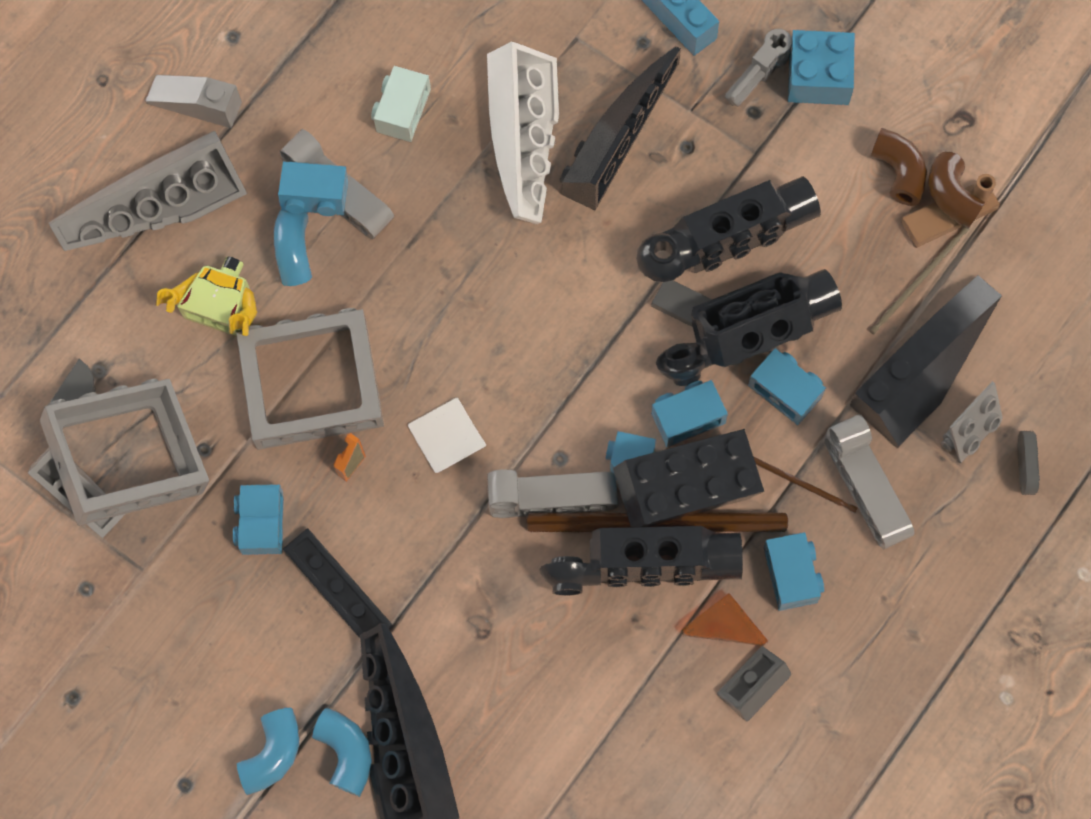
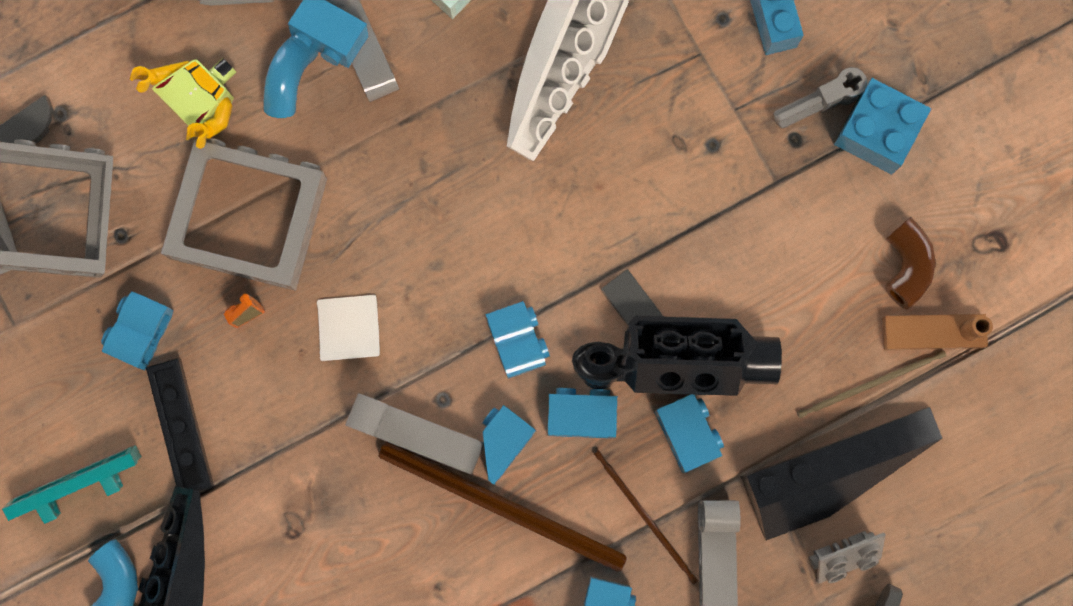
camera: 25 degrees right, 10 degrees up
(278, 753) = (49, 563): dark azure cylinder -> none
(286, 653) = (44, 497): none -> teal hinge
(600, 376) = (517, 340): none -> dark azure brick
(615, 134) = (649, 102): black wedge -> none
(688, 479) = (545, 486): black brick -> none
(694, 549) = (520, 561): black brick -> none
(729, 229) = (666, 253): black brick -> none
(949, 192) = (942, 314): reddish brown cylinder -> none

